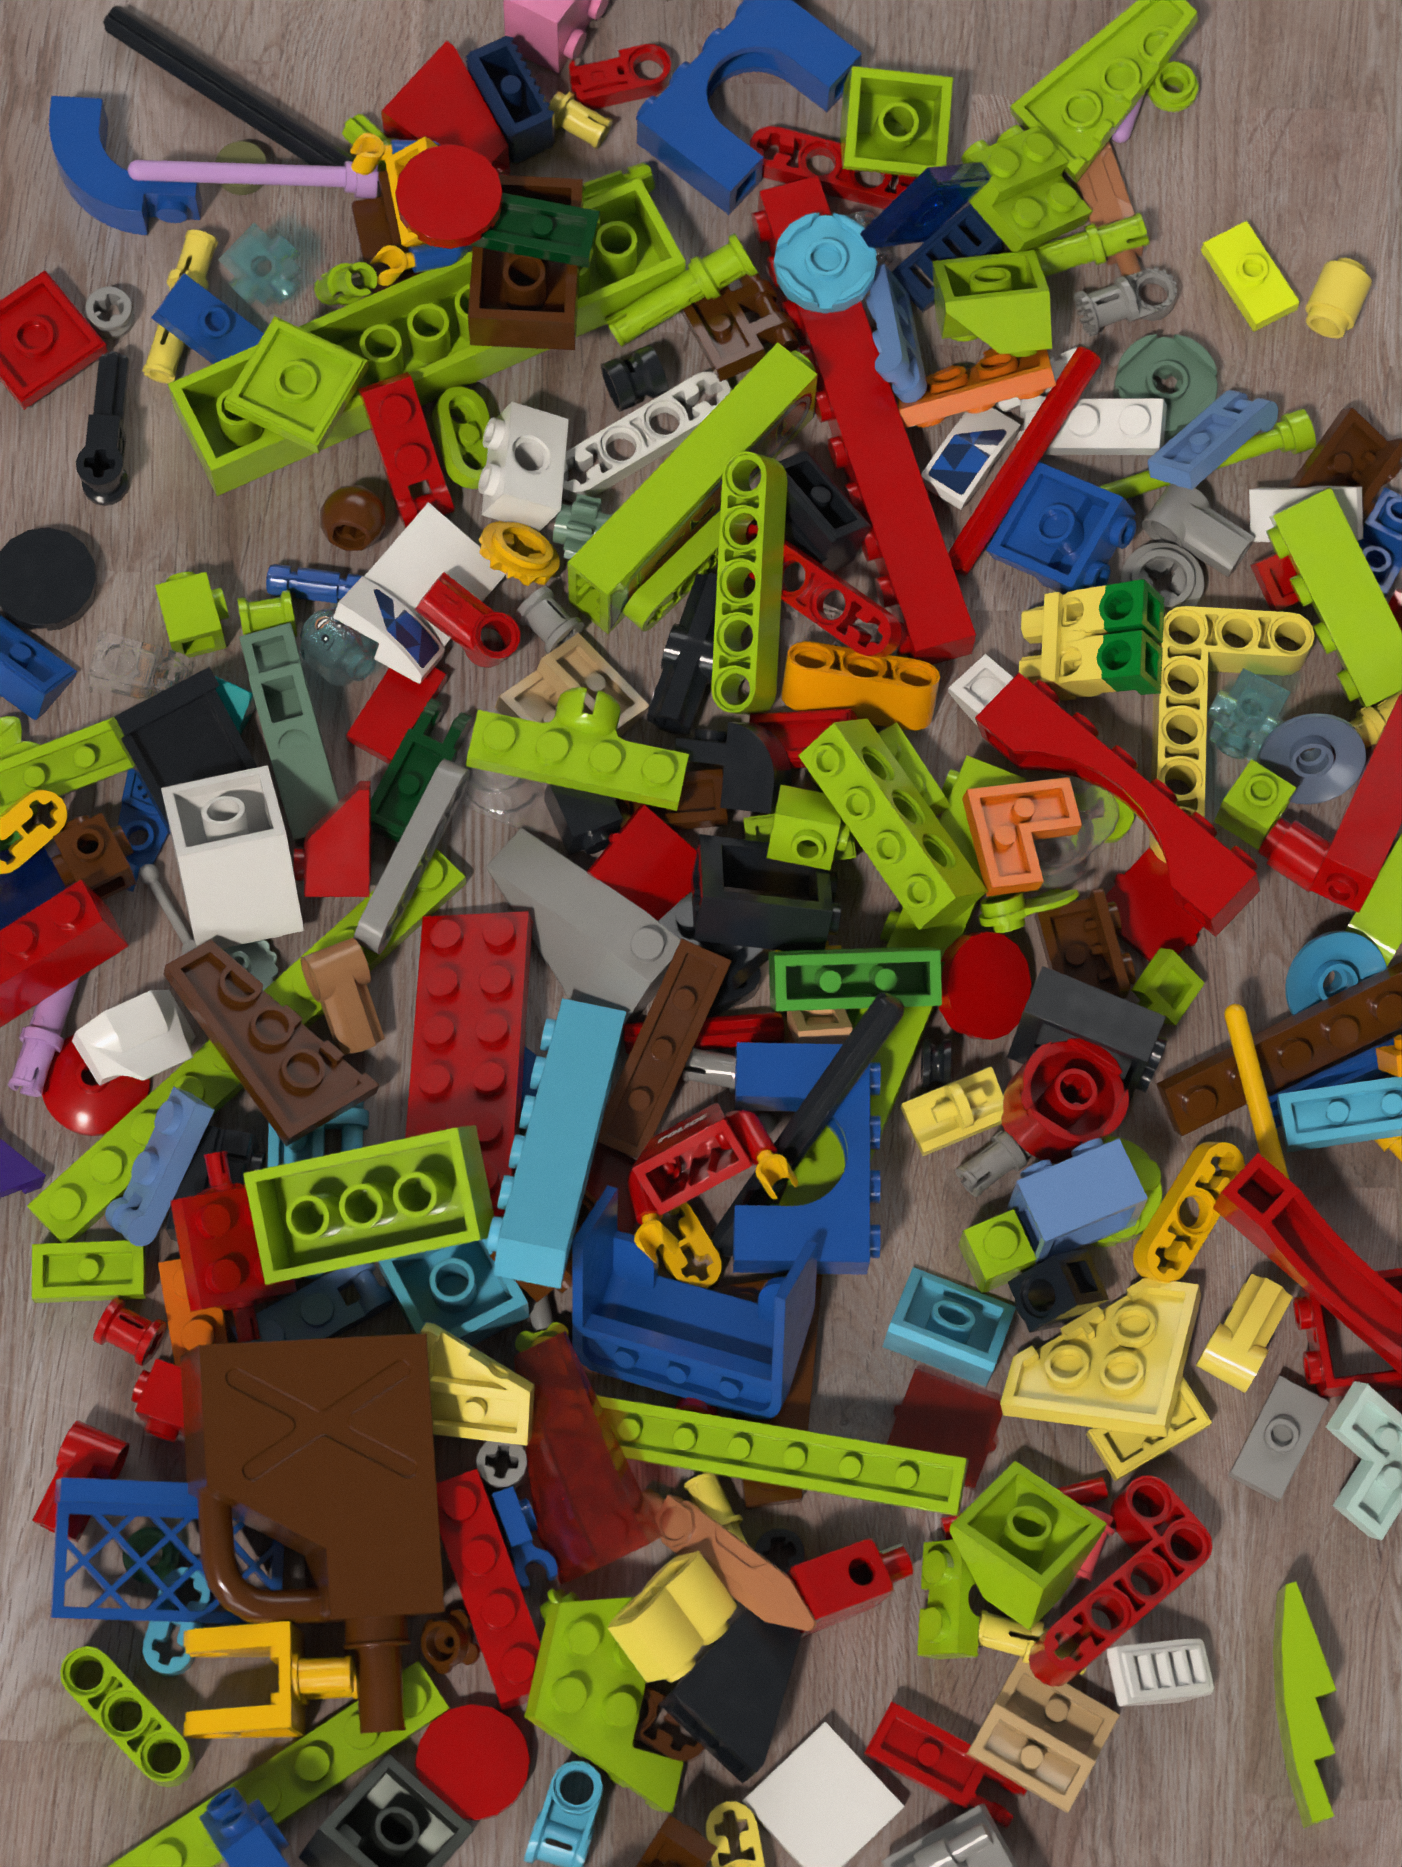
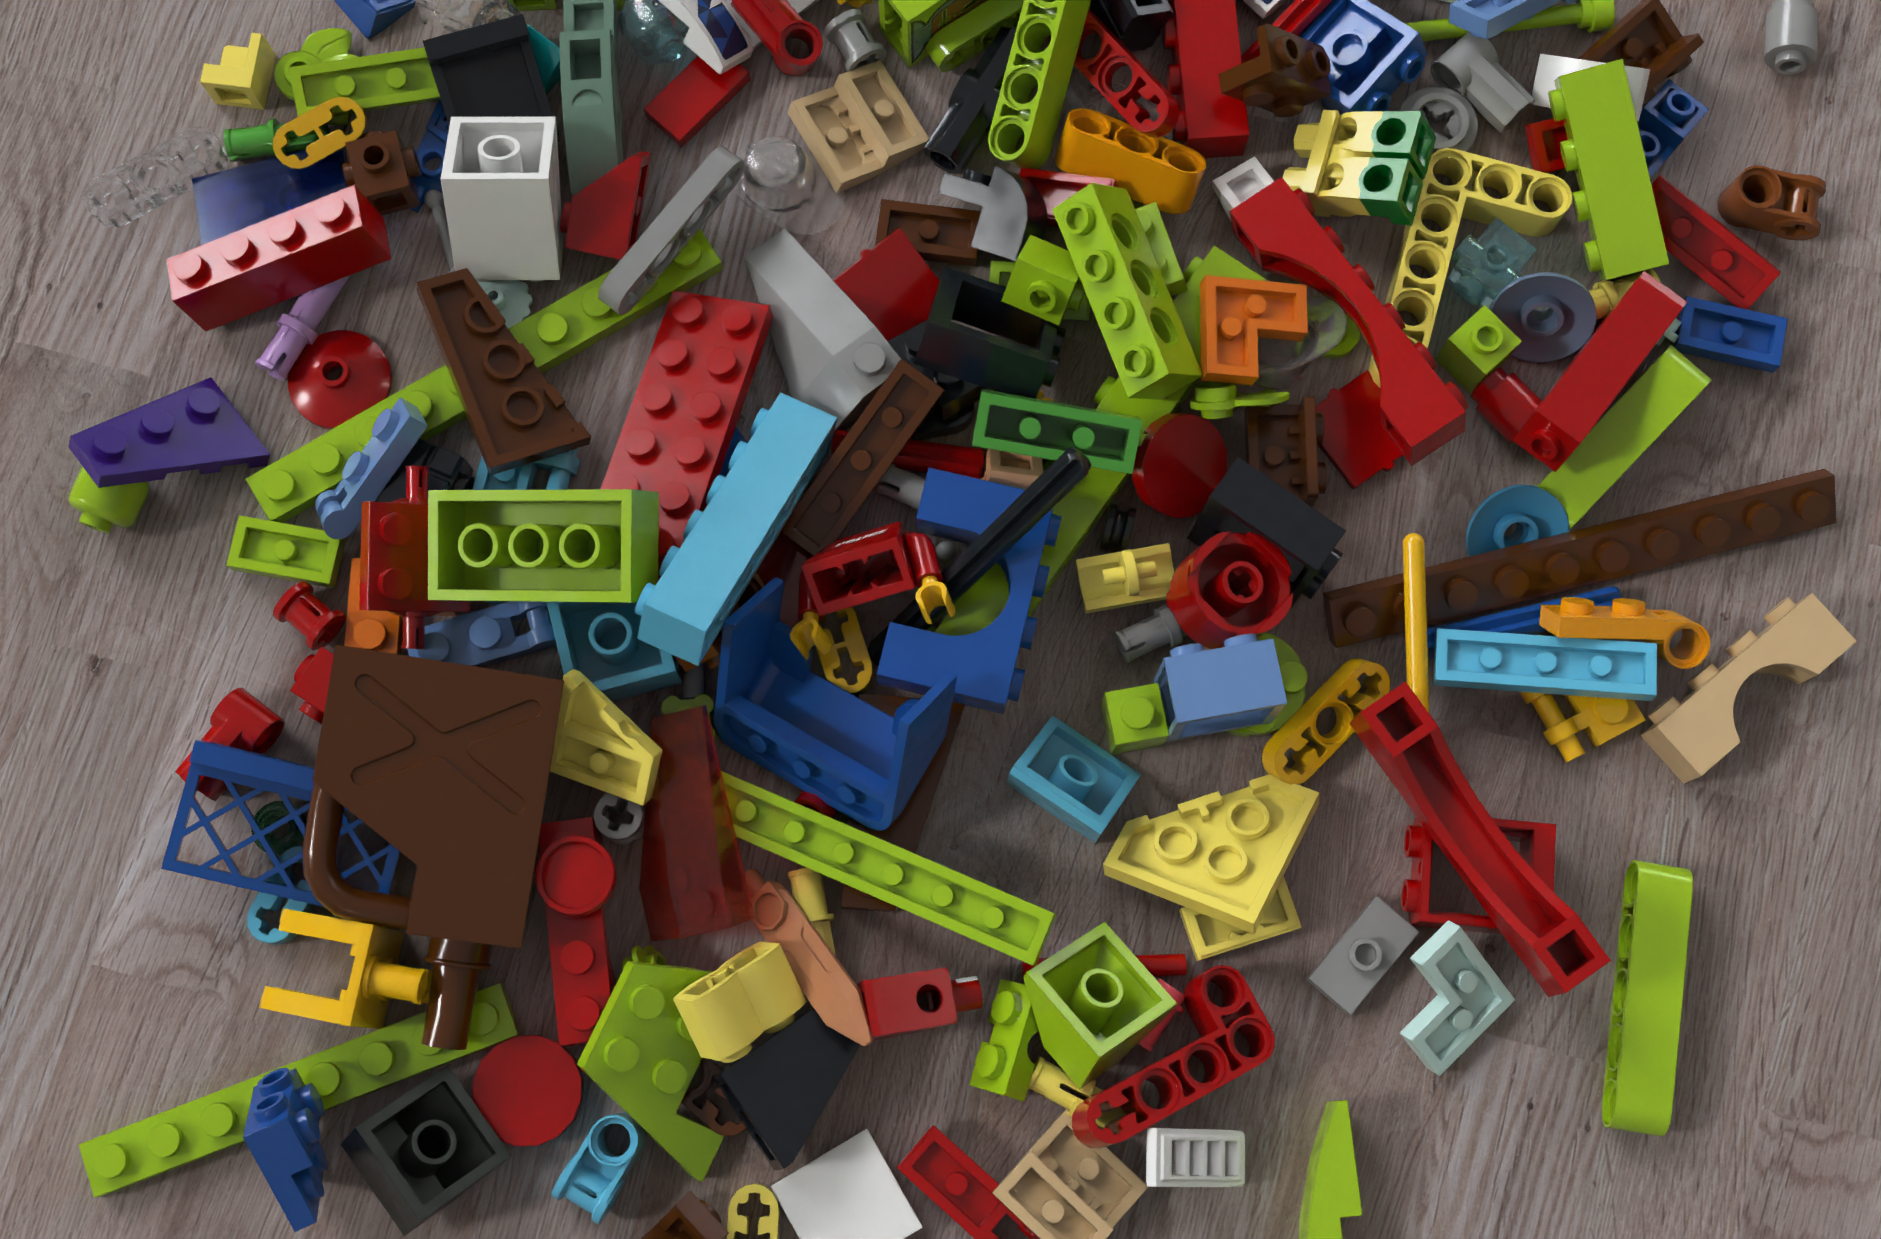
camera: 15 degrees right, 5 degrees up
(105, 1700) = (196, 959): lime beam -> none
(136, 1038) = (380, 344): white slope -> none
(339, 982) = (577, 334): medium nougat piece -> none
(413, 769) = (697, 145): dark green hinge -> none
(436, 1642) = (530, 973): reddish brown plate -> none
(479, 1529) = (575, 876): none -> red piece
(515, 1524) = (620, 901): blue plate -> none
(578, 752) = (849, 166): lime plate -> none
(582, 818) = (843, 221): black brick -> none
(789, 1538) = (848, 948): black bush -> none
(947, 1421) = (1048, 871): clear red piece -> none
(999, 570) = (1283, 77): none -> reddish brown bracket
(1075, 1287) = (1183, 769): black brick -> none
(1167, 986) = (1355, 503): lime plate -> none
(1241, 1342) = (1344, 858): light yellow piece -> none

